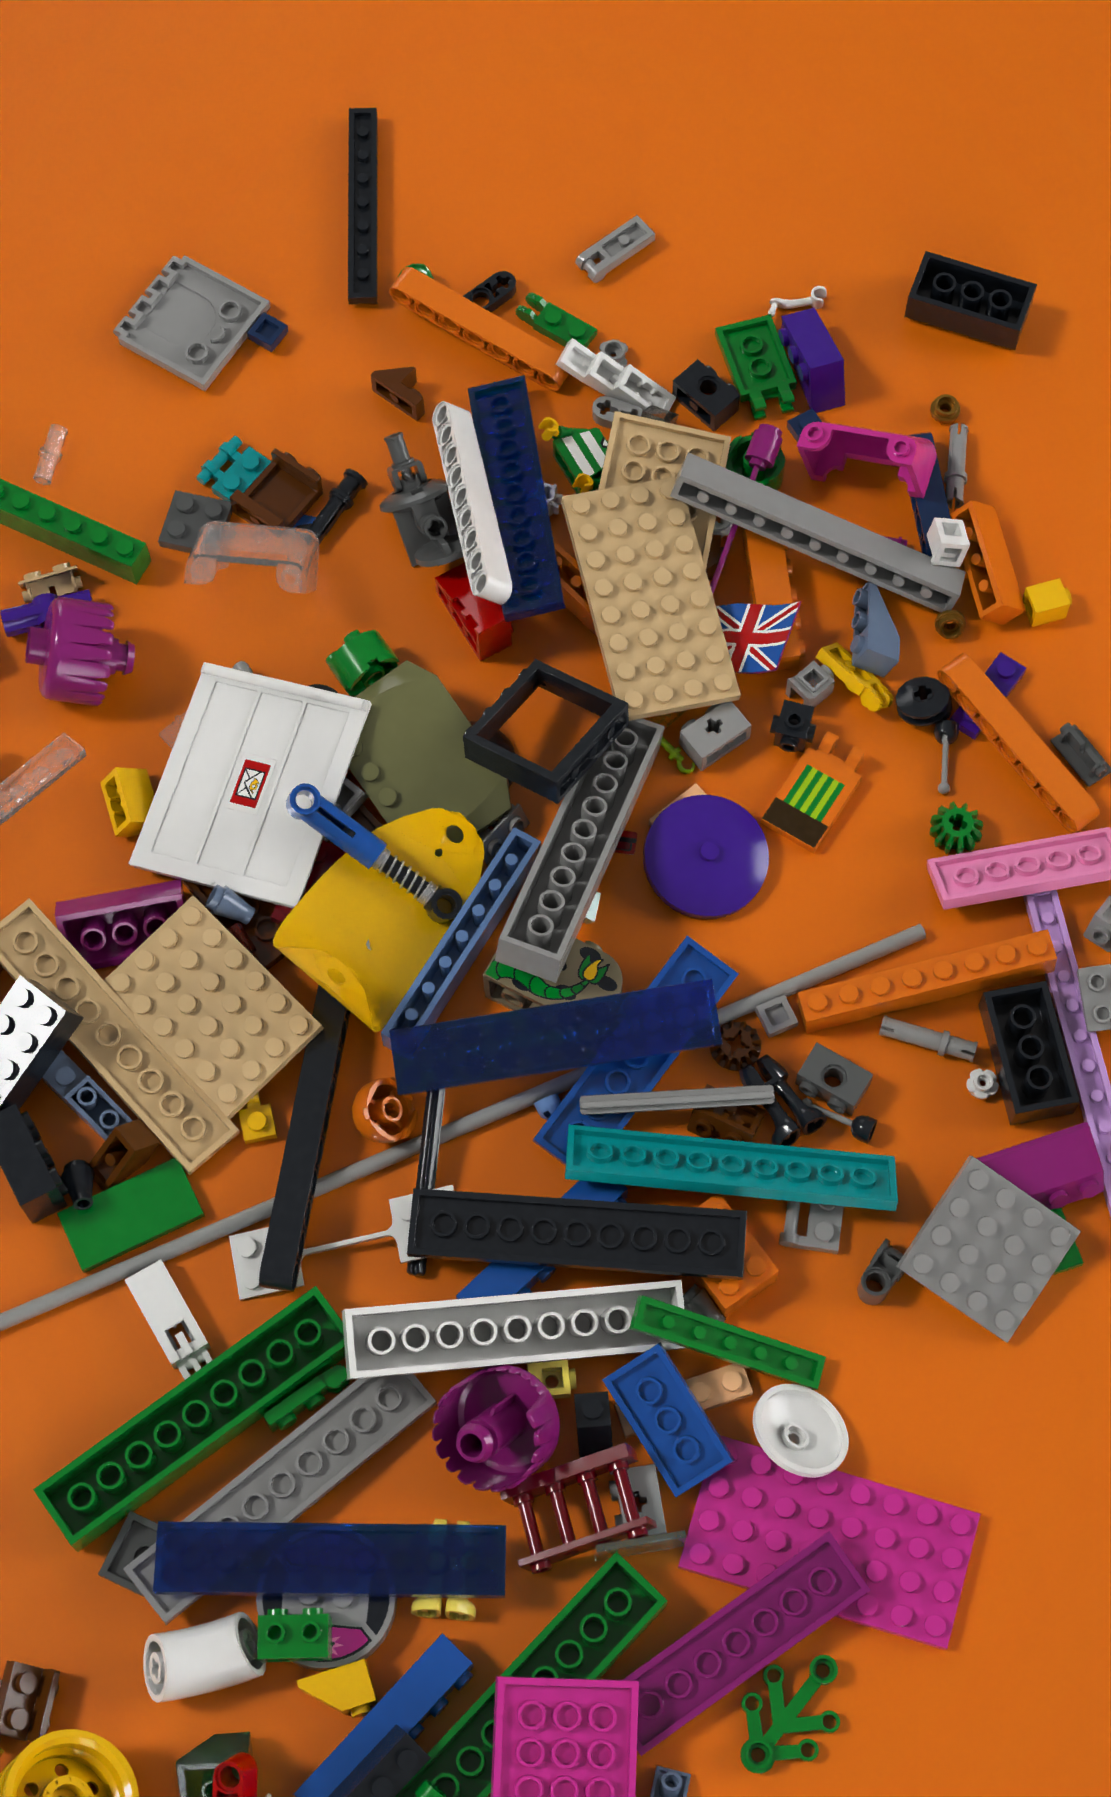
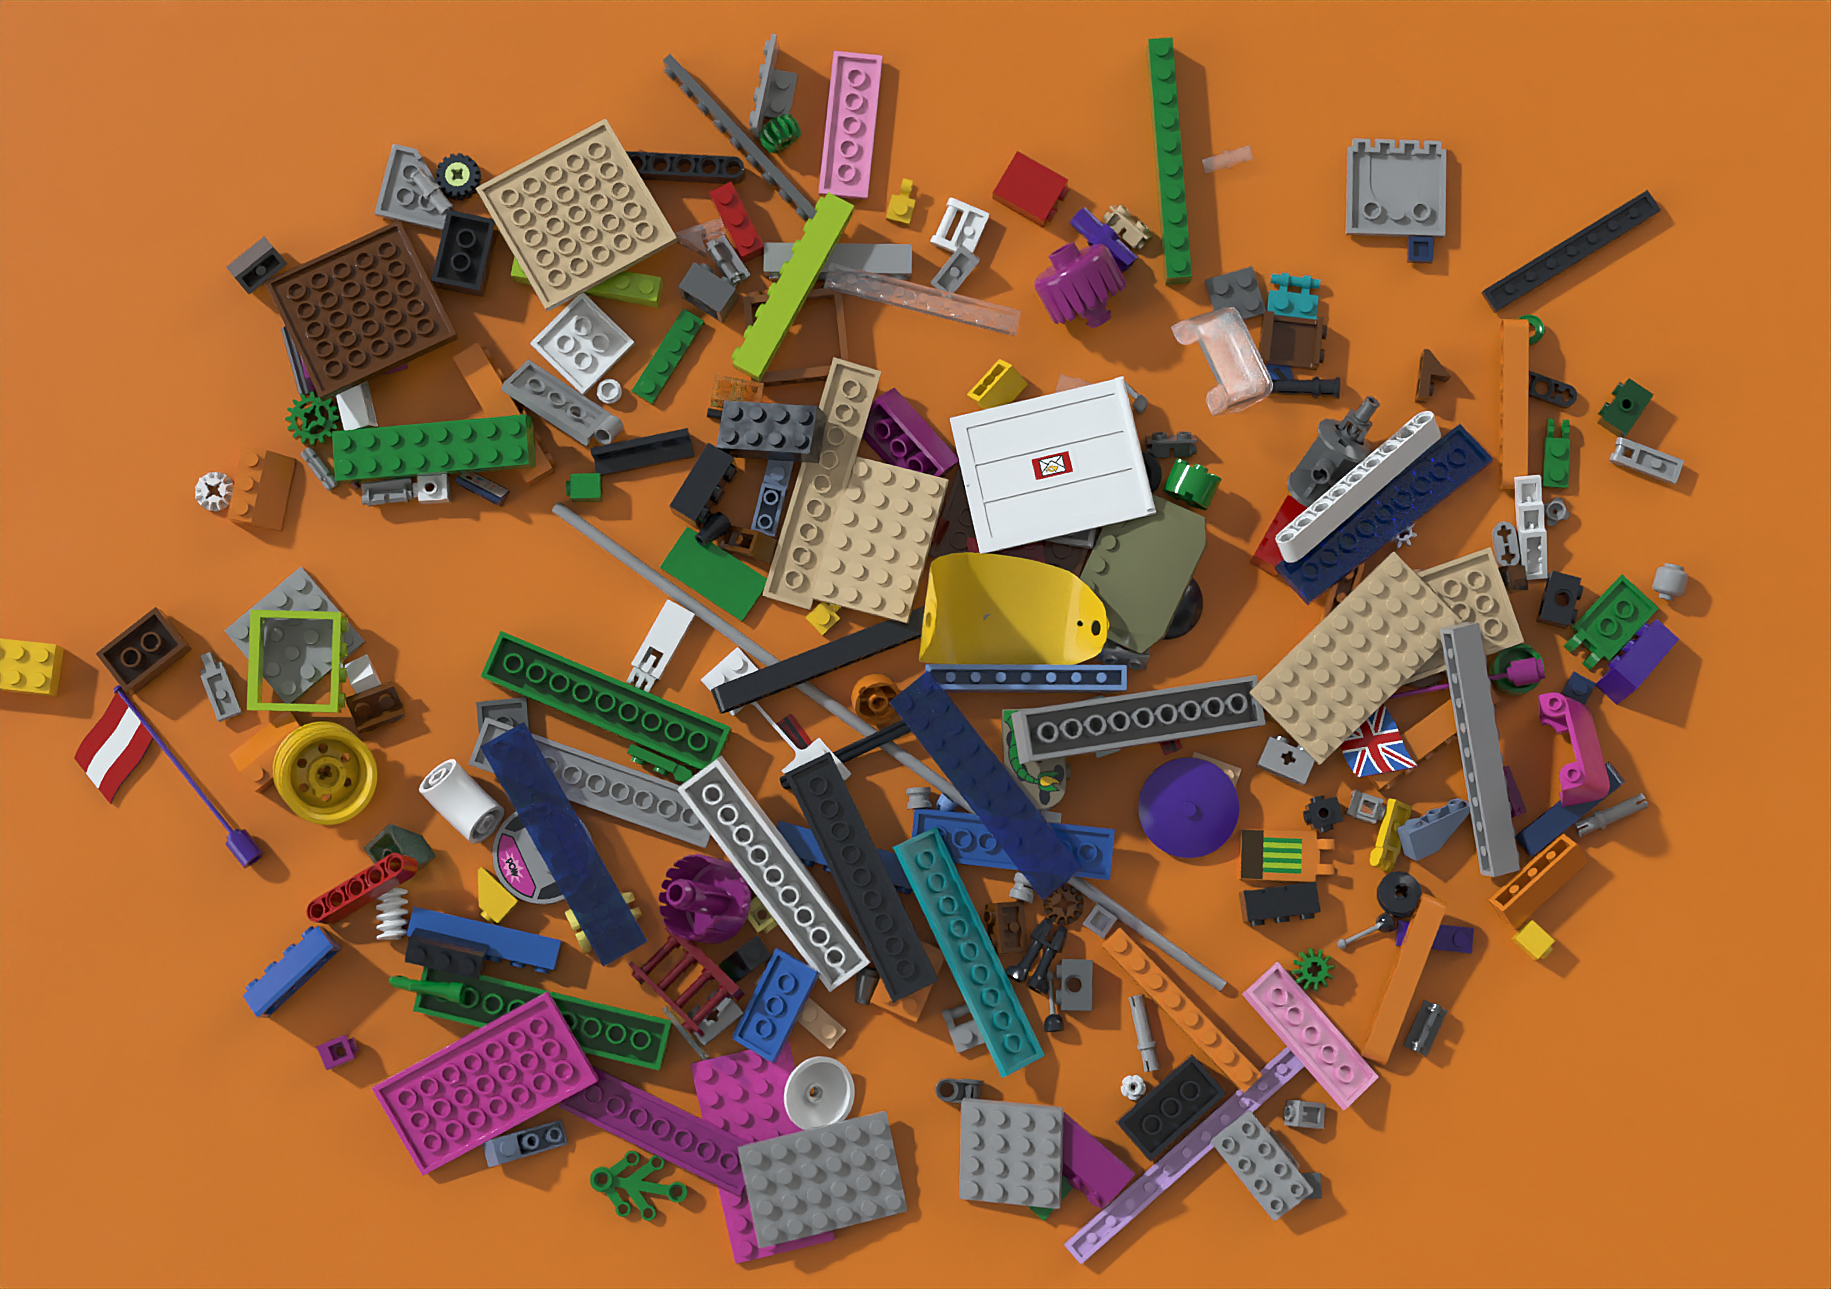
camera: 60 degrees right, 15 degrees up
(228, 904) = (957, 504): sand blue cone -> none
(294, 1636) = (504, 850): green brick -> none
(313, 654) = (1181, 443): none -> dark grey hinge
(366, 1226) = (794, 732): none -> sticker
(369, 850) = (1048, 580): piece -> none
(523, 1131) = (918, 798): none -> light grey wheel
(550, 238) = (1624, 408): none -> dark green brick
(577, 452) = (1453, 538): torso -> none
(577, 762) = (1199, 684): black window -> none
(675, 754) = (1256, 741): lime hand -> none
(676, 1099) = (995, 888): light grey axle -> none
(692, 1073) = (1022, 893): none -> light grey wheel
(727, 1342) = (847, 1016): green plate -> none
(750, 288) = (1670, 581): none -> light grey head
(818, 291) = (1682, 621): white piece -> none
(864, 823) = (1279, 903): none -> black wedge
(902, 1484) = (822, 1179): none -> light grey plate
(945, 402) = (1662, 778): pearl gold plate -> none
(948, 542) = (1531, 845): white brick -> none
(953, 629) = (1473, 880): pearl gold plate -> none
(970, 300) = (1757, 751): black brick -> none

